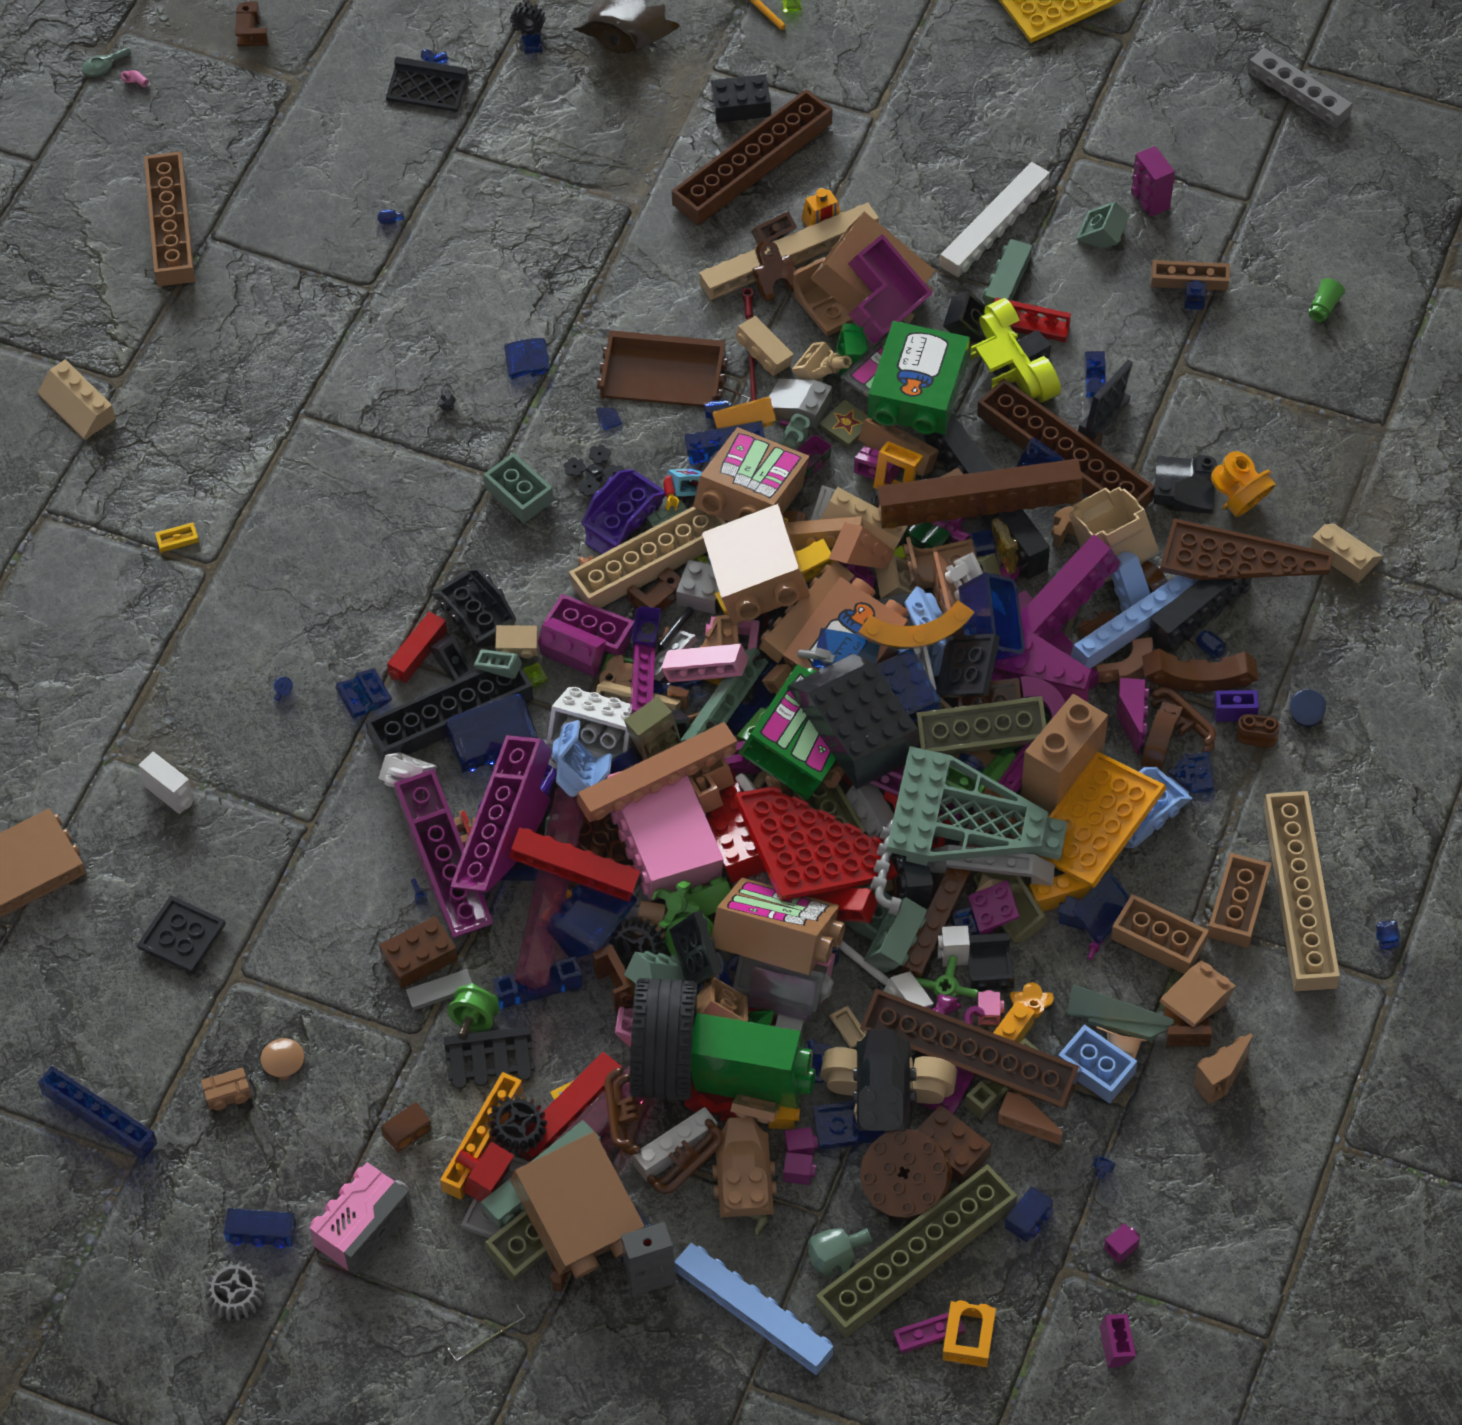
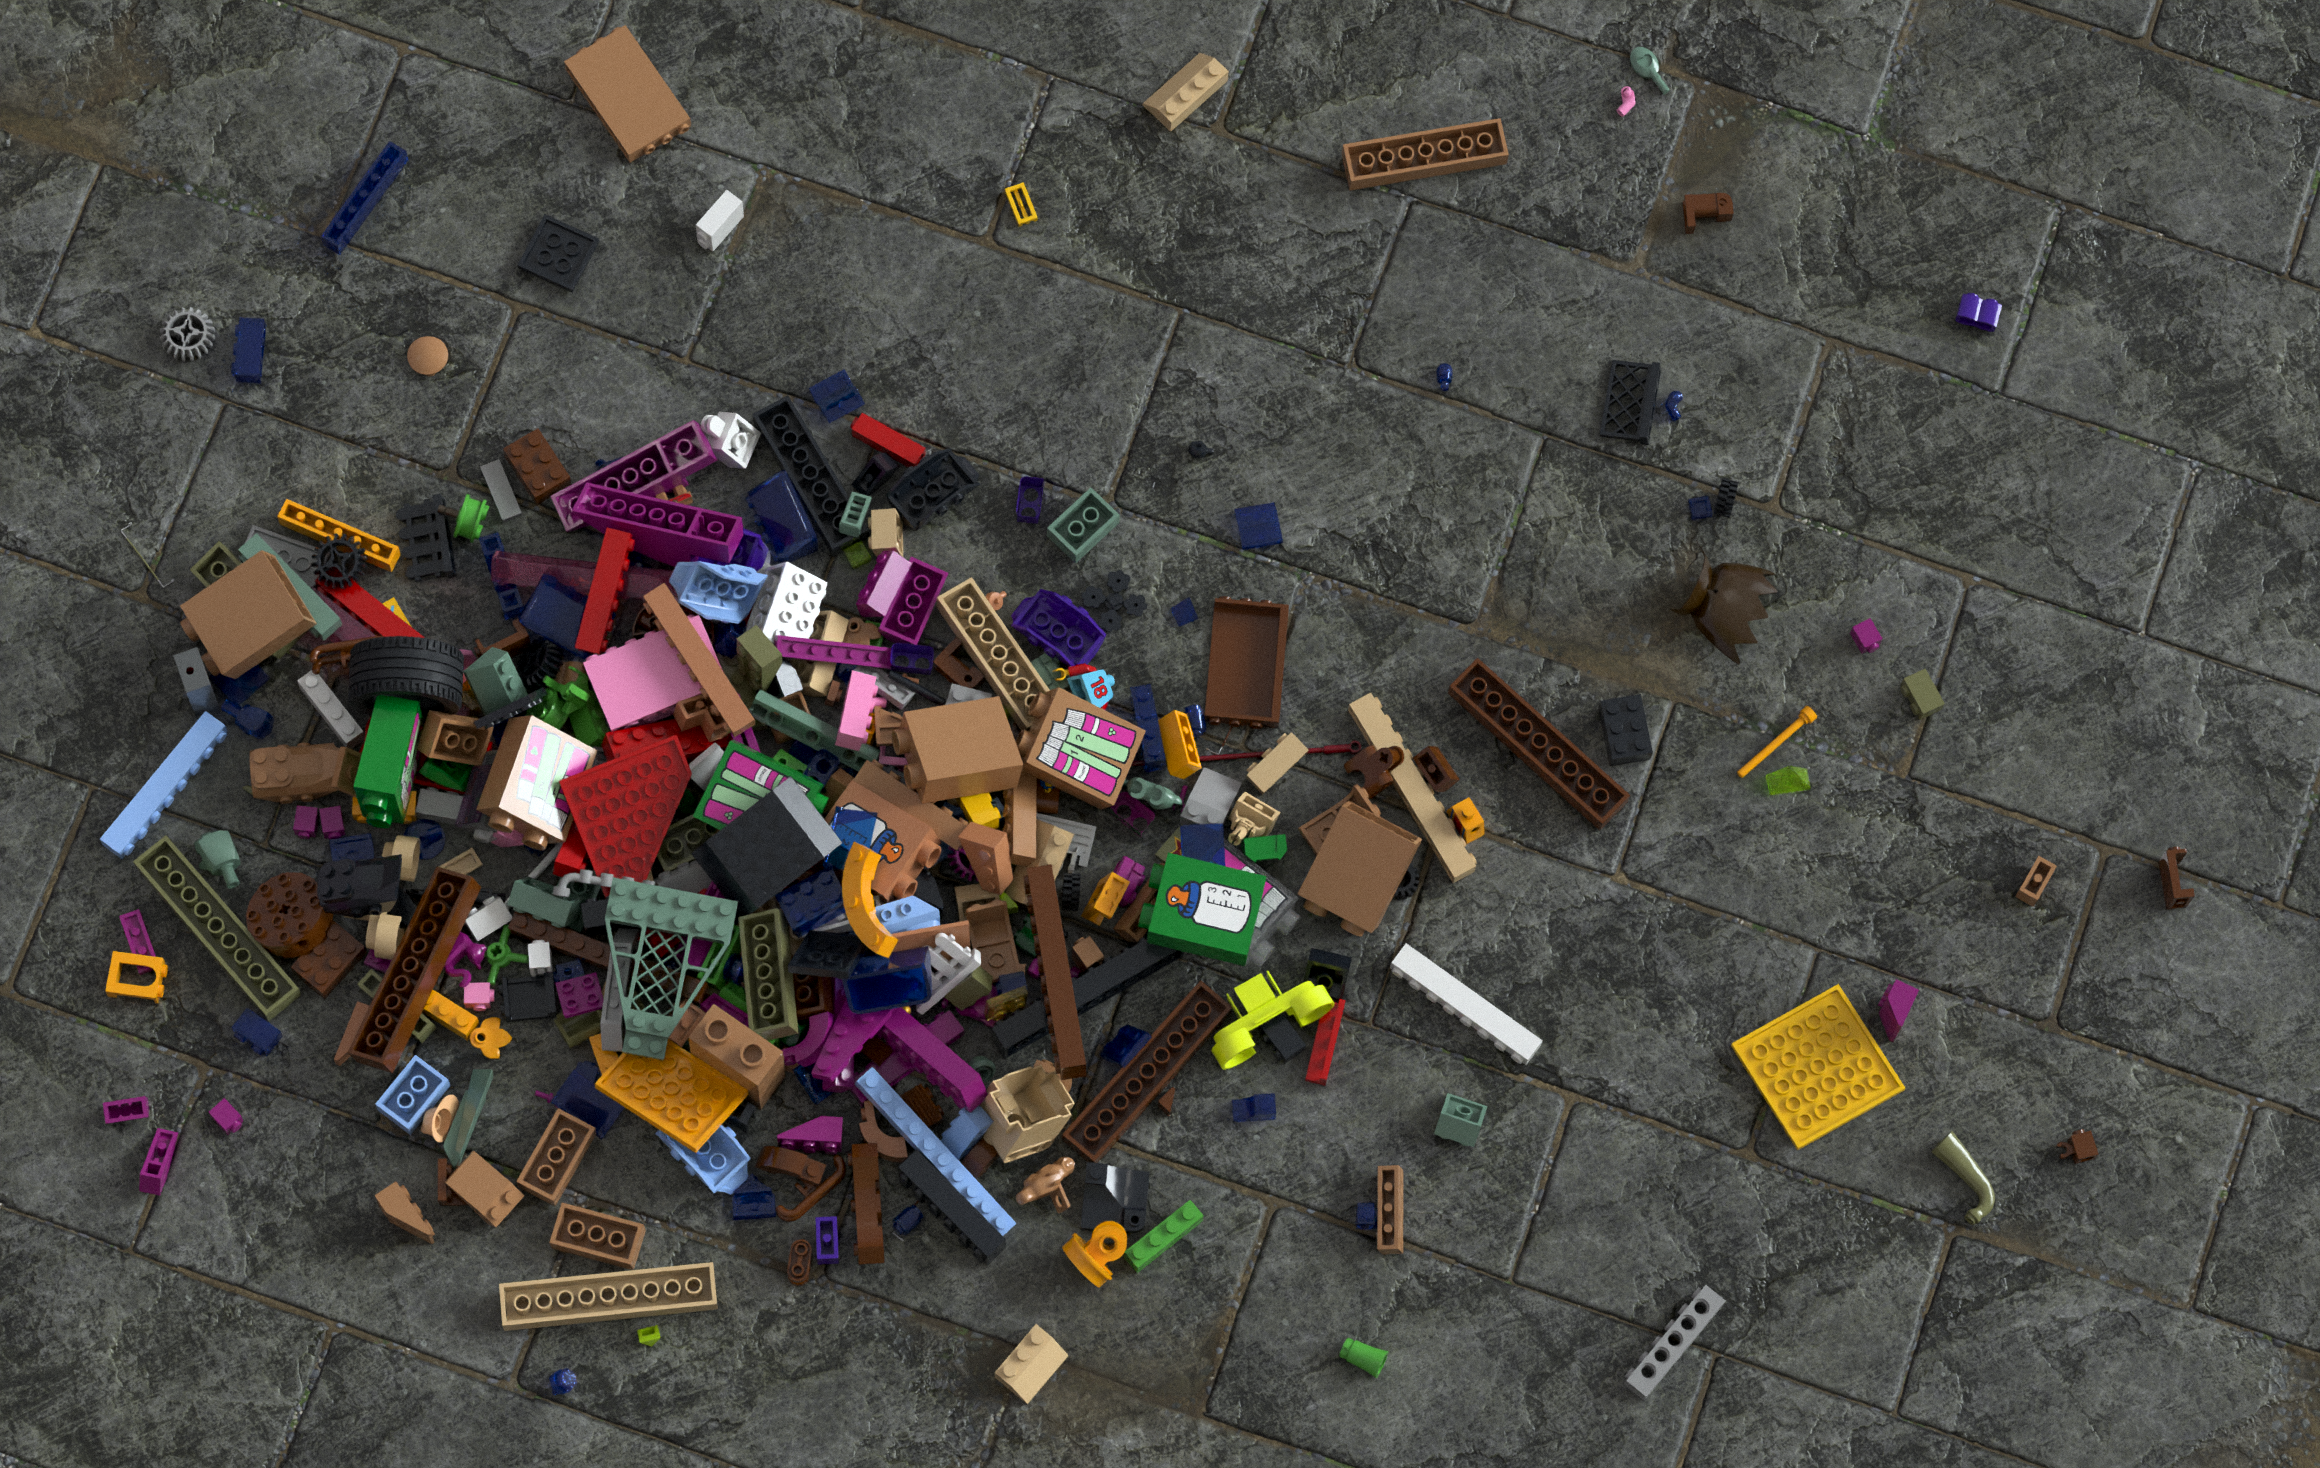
camera: 80 degrees right, 15 degrees up
(226, 1089) = (392, 308): medium nougat brick -> none
(283, 686) = (840, 319): clear blue piece -> none
(361, 1218) = (252, 434): piece -> none
(406, 1127) = (350, 469): reddish brown piece -> none
(485, 524) = (1026, 483): none -> dark purple piece
(486, 1171) = (292, 537): red brick -> none
(684, 1220) = (250, 719): none -> clear blue piece
(688, 1160) = (309, 718): reddish brown piece -> none
(762, 682) = (825, 754): none -> clear blue piece
(820, 654) = (839, 812): light grey bar -> none
(850, 389) = (1203, 842): none -> clear blue piece
(894, 287) = (1319, 884): magenta piece -> none
(1008, 272) = (1386, 1017): sand green brick -> none
(1104, 1165) = (308, 1101): clear blue tile -> none
(1107, 402) = (1201, 1115): black fence -> none
(1152, 181) = (1512, 1167): magenta brick -> none
(1162, 518) = (1048, 1182): none -> medium nougat piece
(1173, 1308) = (158, 1162): none -> magenta slope
(1213, 436) = (1163, 1236): none -> bright green brick
(1217, 553) = (993, 1219): reddish brown wing -> none
(1307, 707) = (829, 1314): dark blue piece -> none
(1334, 860) = (649, 1335): none -> lime slope

